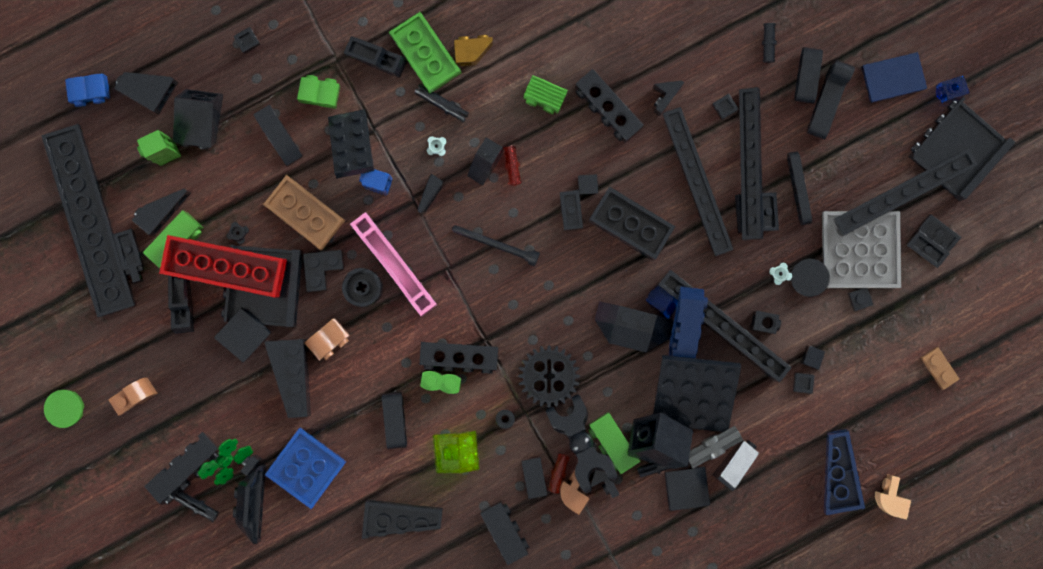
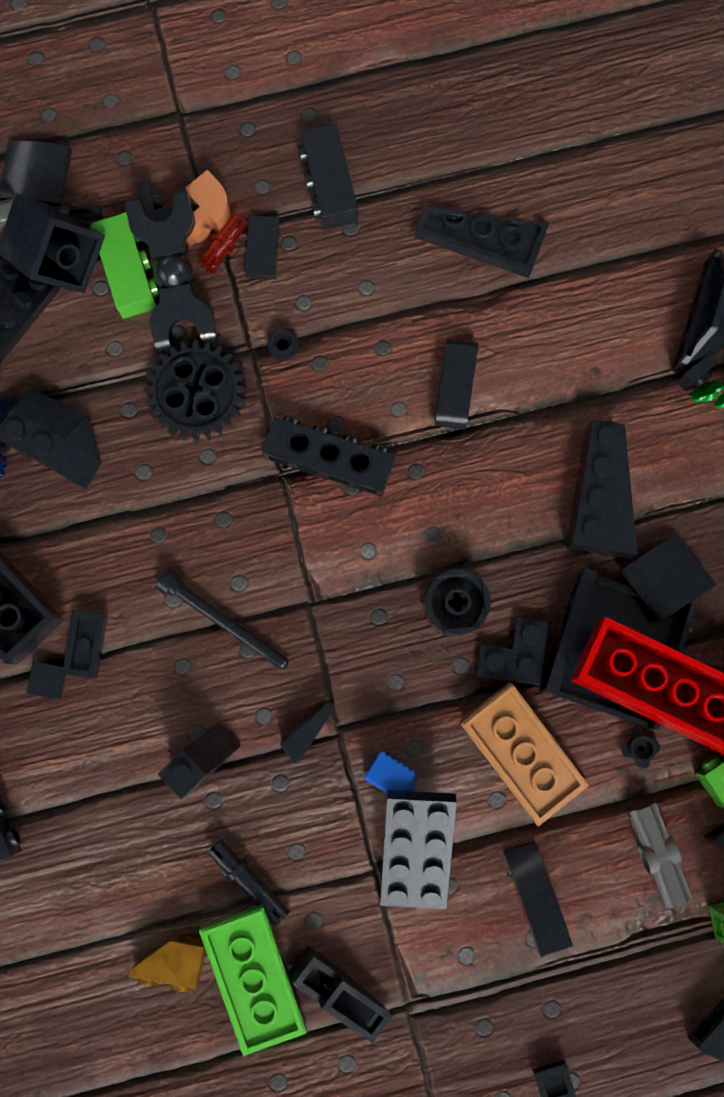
camera: 160 degrees left, 5 degrees down
(196, 118) = (670, 966): black slope -> none
(214, 176) = (659, 855): none -> dark grey piece
(305, 468) = (612, 347): blue plate -> none
(318, 92) = (451, 956): bright green brick -> none
(328, 339) = (532, 535): nougat brick -> none
(393, 264) = (395, 628): bright pink arch -> none
(440, 142) = (280, 819): light aqua plate -> none
(447, 383) = (359, 420): bright green brick -> none
(456, 452) = (371, 311): clear neon green slope -> none
(512, 165) = (159, 742): clear red pin -> none
(545, 95) = (71, 850): bright green brick -> none

